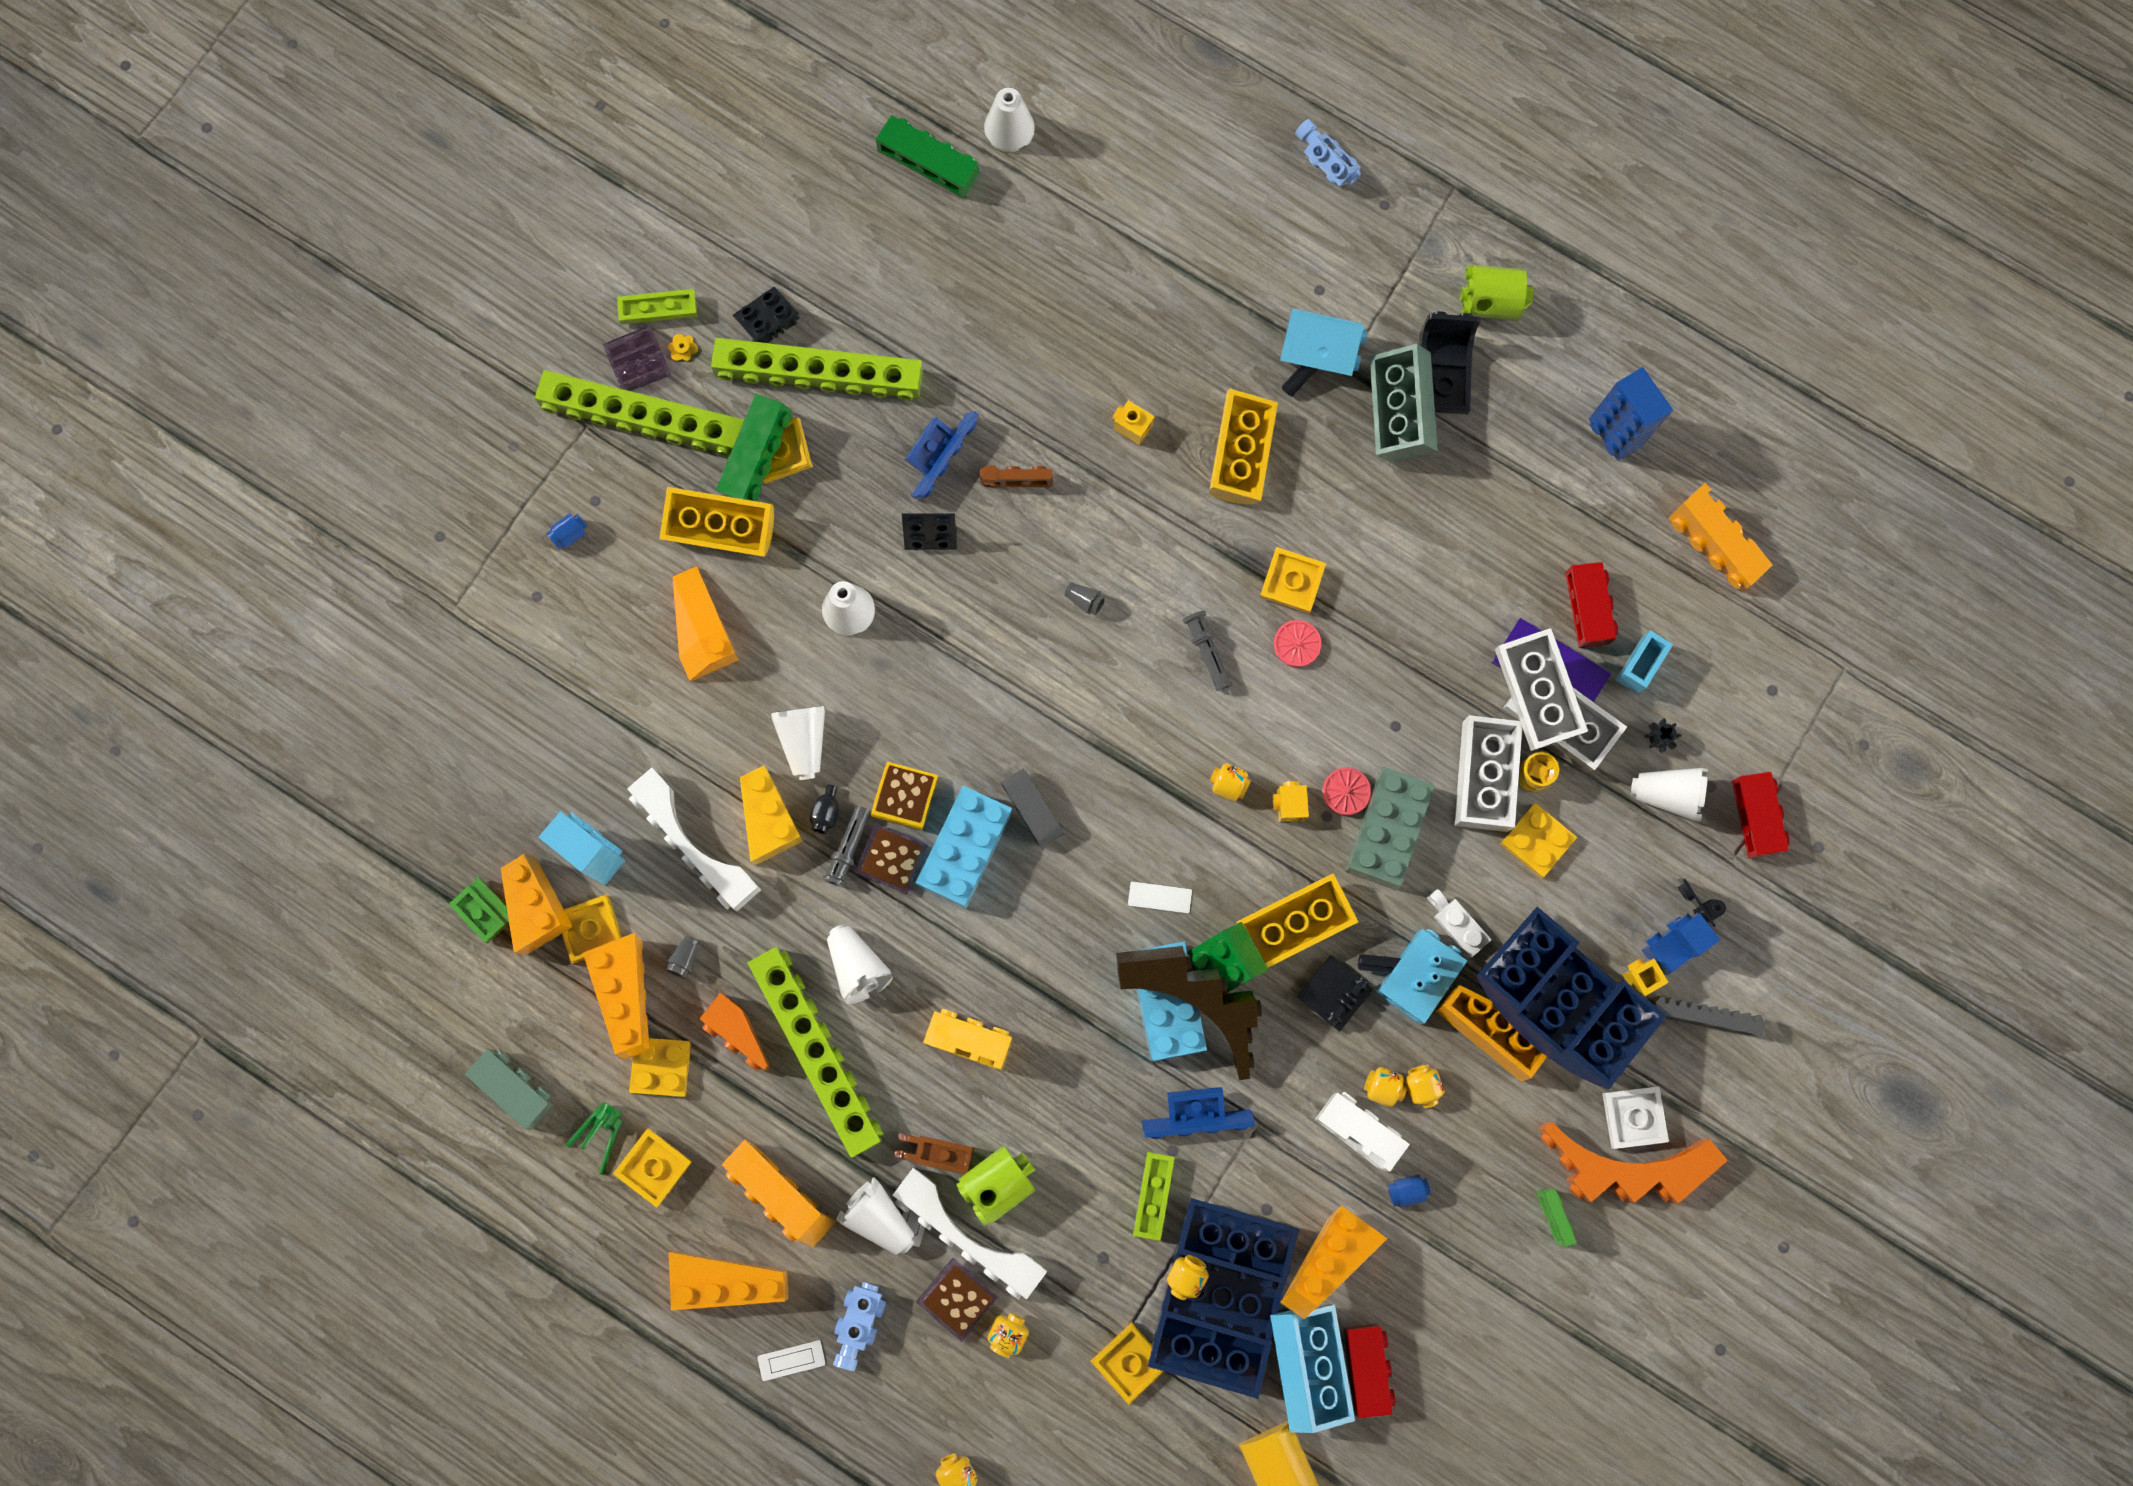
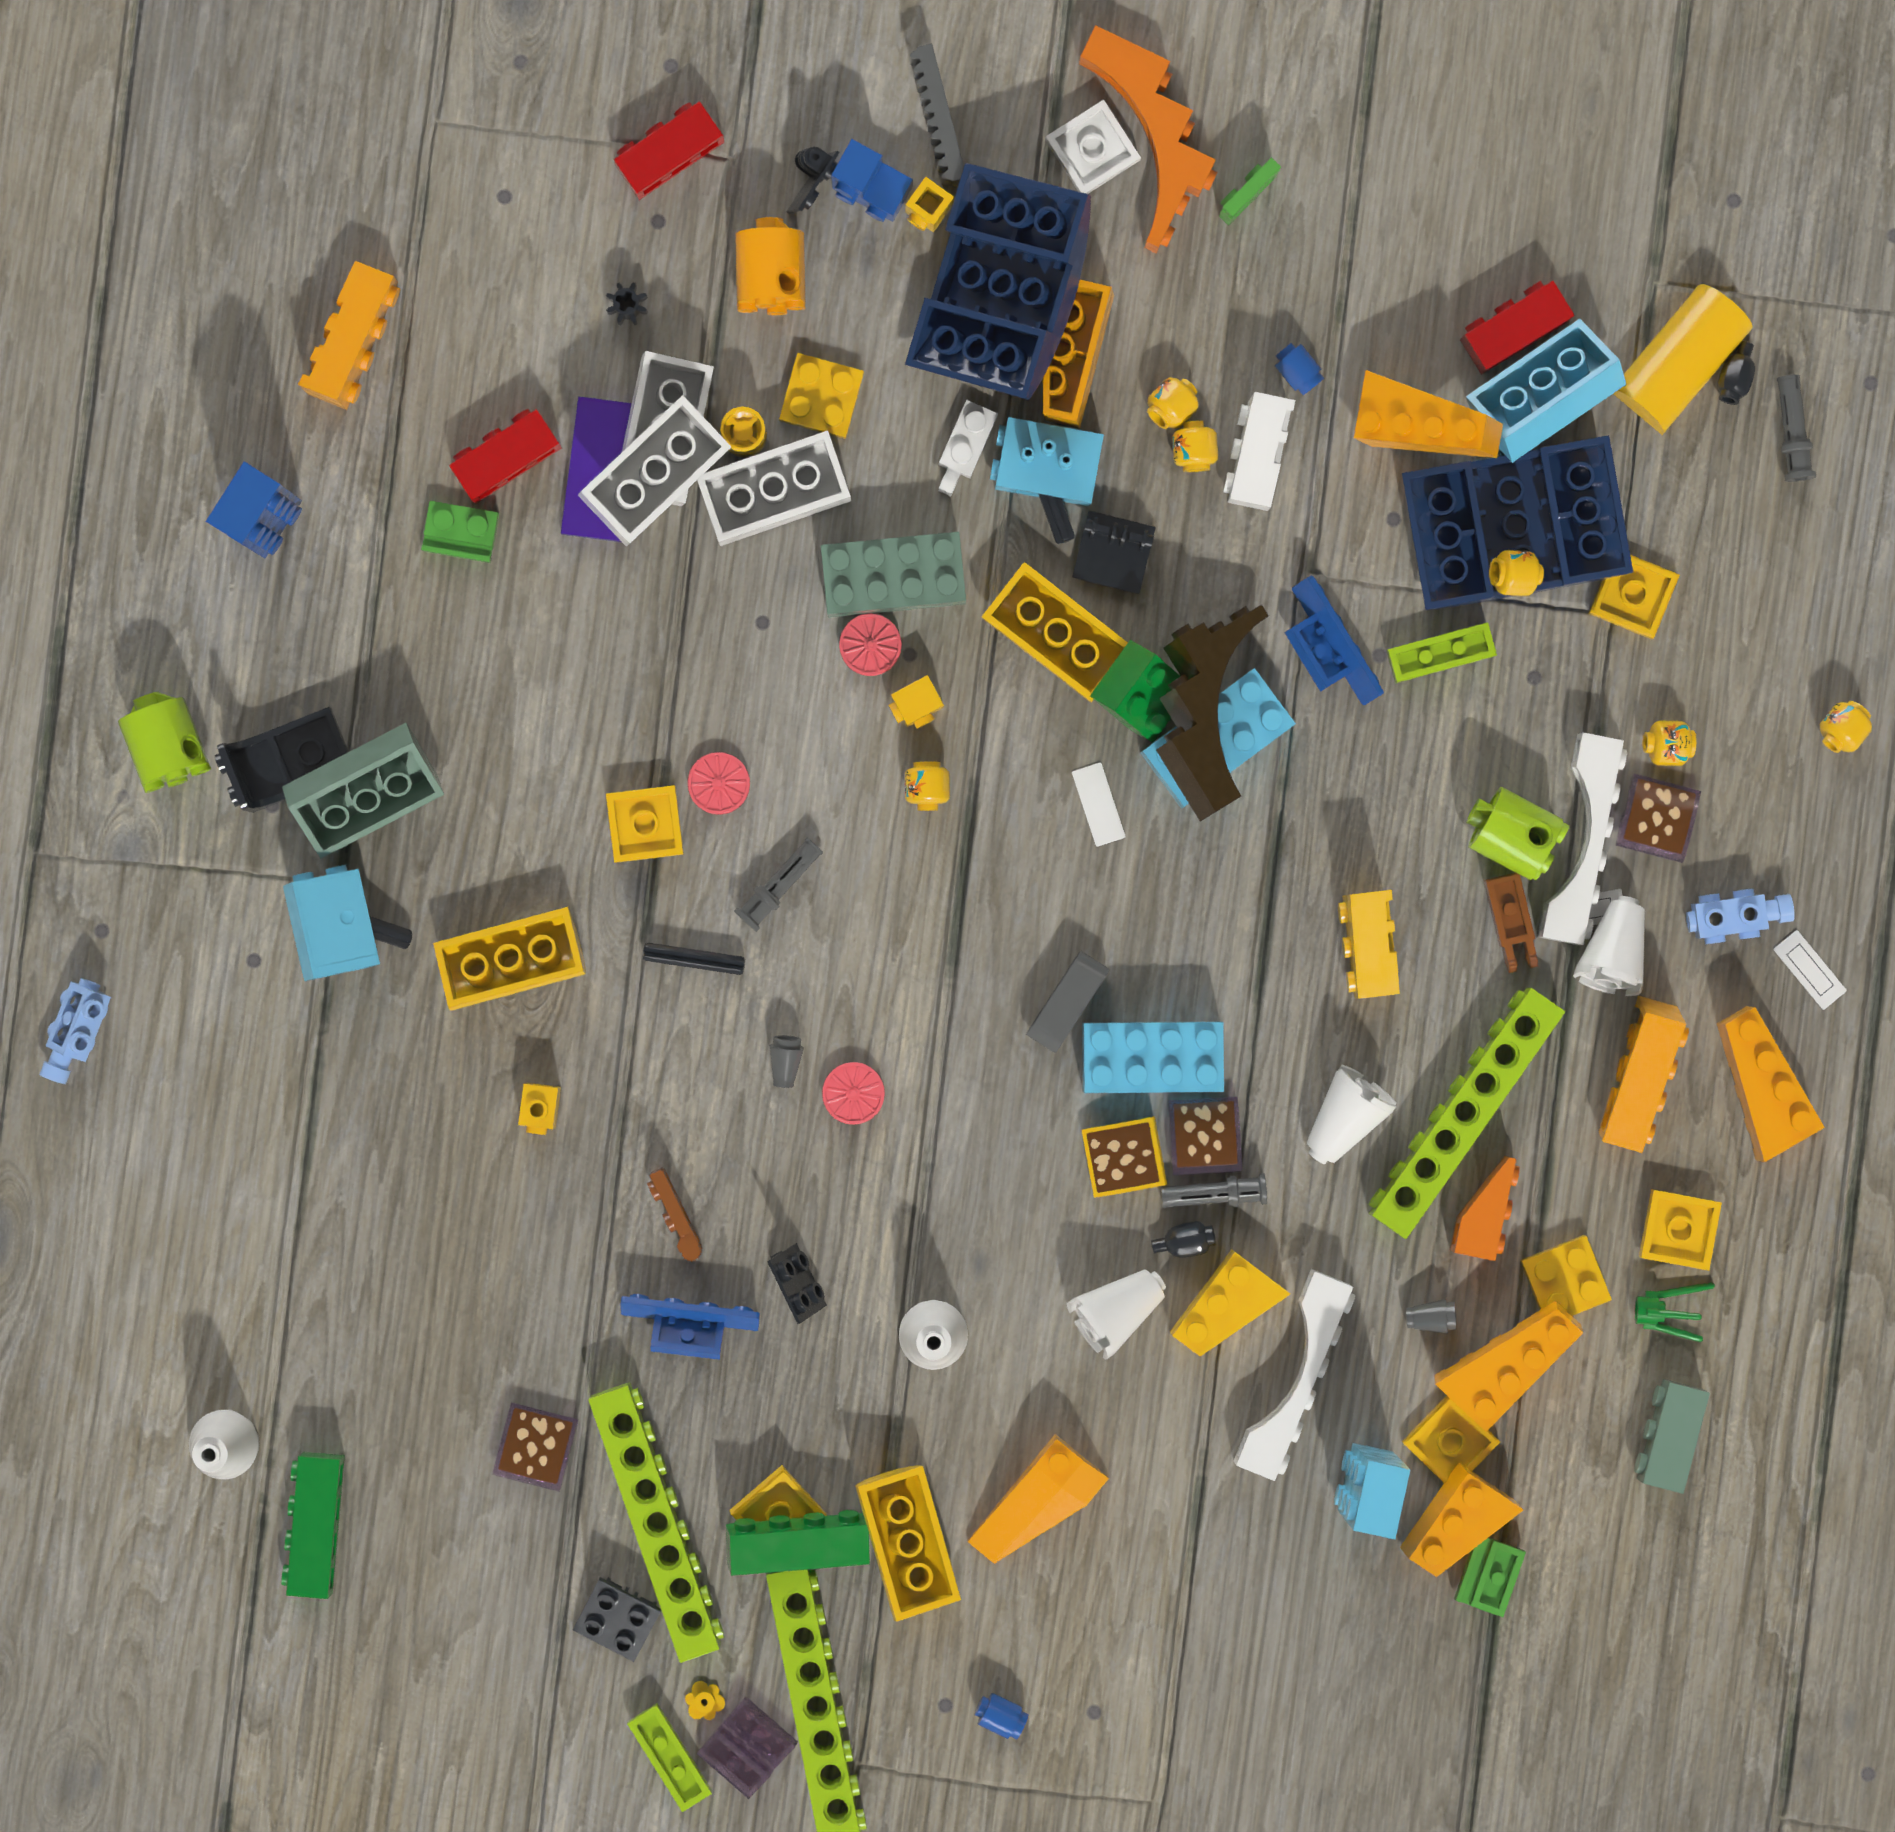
camera: 115 degrees left, 10 degrees up
(907, 316) = (535, 1447): none -> slope
(1040, 633) = (853, 1093): none -> coral wheel
(1184, 570) = (693, 958): none -> black axle
(1550, 553) = (460, 531): none -> bright green plate
(1644, 662) = (549, 363): medium azure brick -> none
(1647, 844) = (770, 268): none -> light orange cylinder
(1673, 791) = (690, 264): white cone -> none

